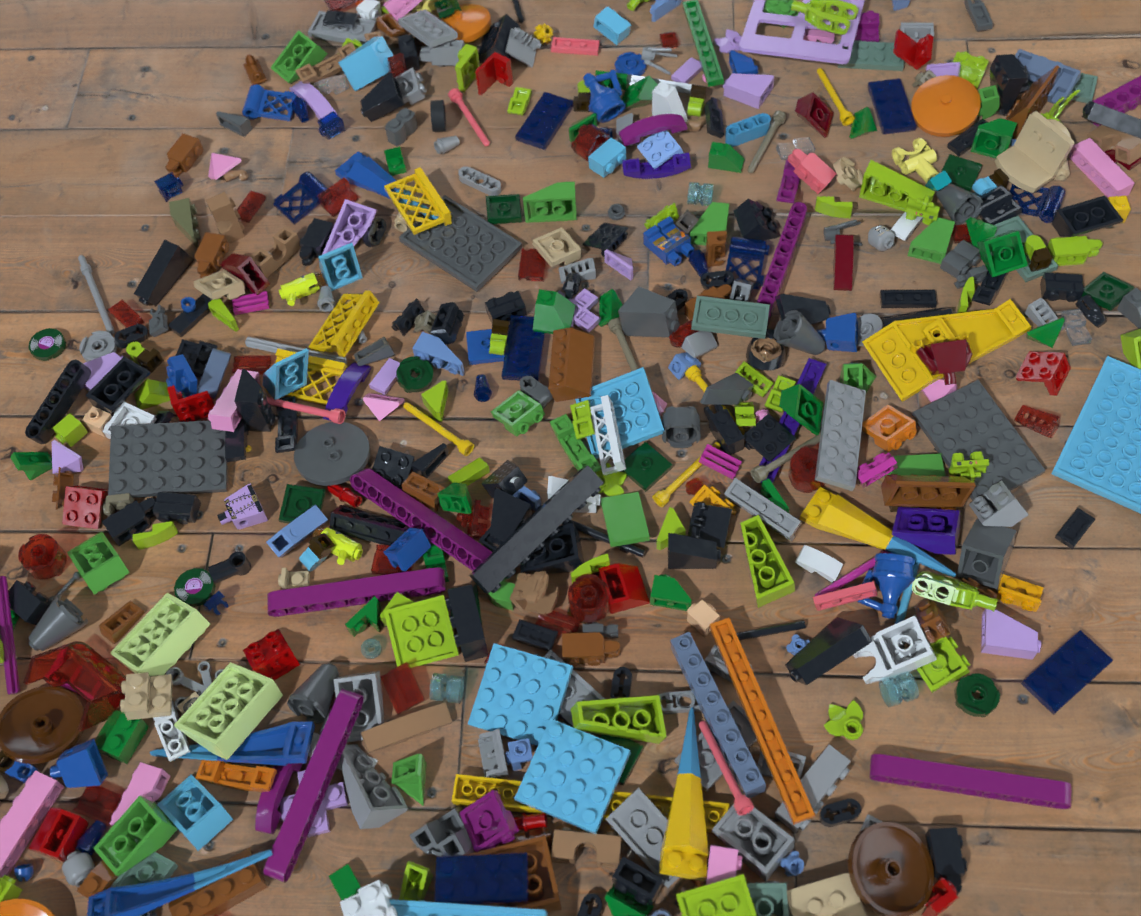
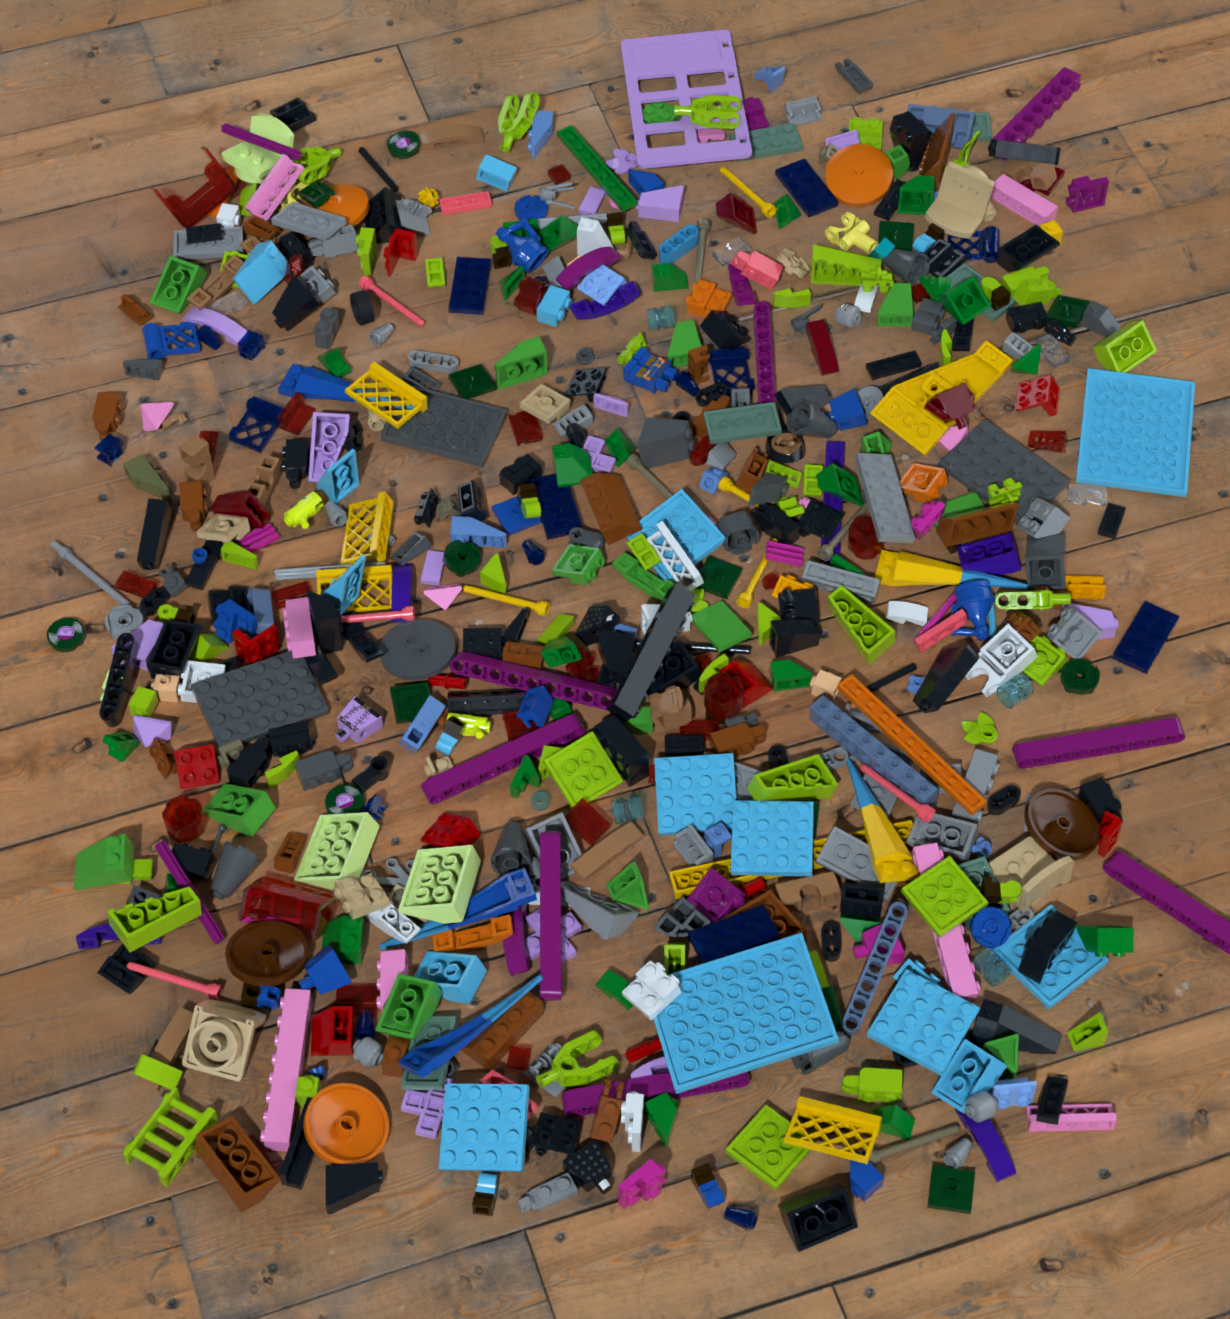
camera: 25 degrees left, 5 degrees down
(188, 546) = (322, 769): none -> dark grey hinge
(455, 186) = (419, 376): none -> dark grey slope
(594, 549) = (703, 662): none -> clear red plate
(687, 221) = (661, 346): dark brown leg -> none
(722, 366) = (751, 471): none -> dark orange hinge
(753, 186) = (707, 298): none -> orange plate
(913, 52) = (808, 130): red bracket -> none
(985, 646) = (1074, 633): none -> light grey plate
(1057, 489) = (1083, 493): none -> clear slope
(1081, 262) = (1036, 291): none -> lime hinge

